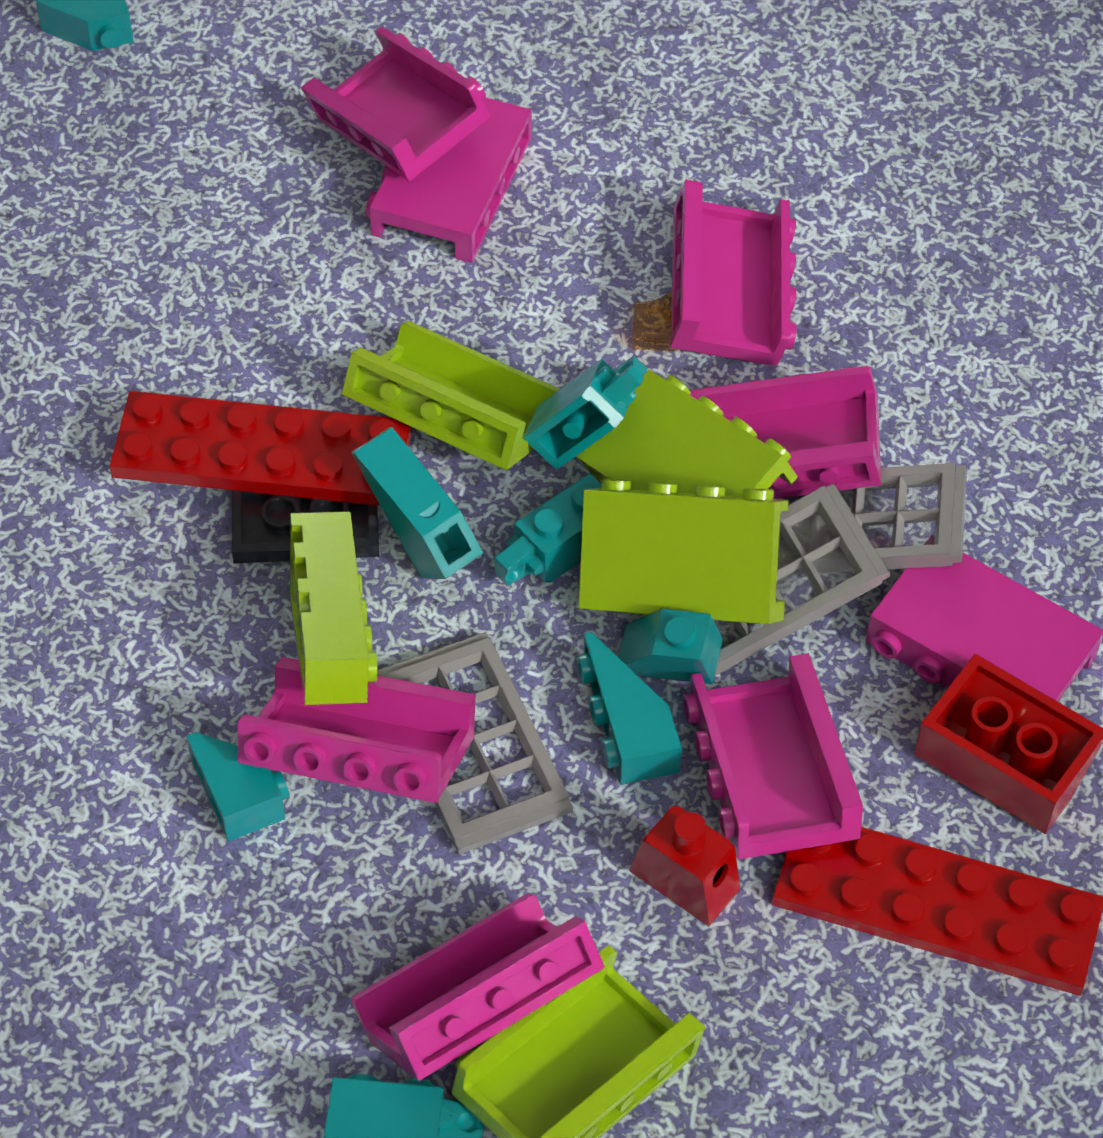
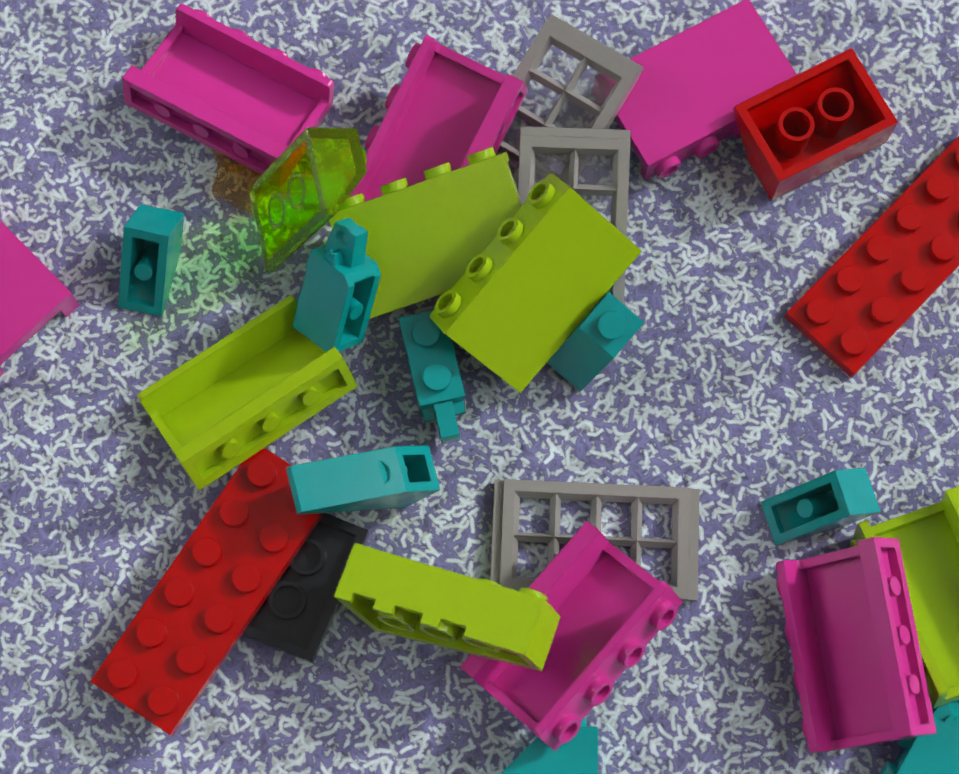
camera: 65 degrees left, 20 degrees up
(541, 283) = (149, 258): none -> teal slope
(618, 915) = (820, 505): none -> teal slope
(636, 720) = (647, 401): teal slope -> none
(676, 343) = (305, 189): none -> clear neon green slope
(683, 861) = (804, 426): red torso -> none
(775, 762) = (741, 309): dark pink panel -> none

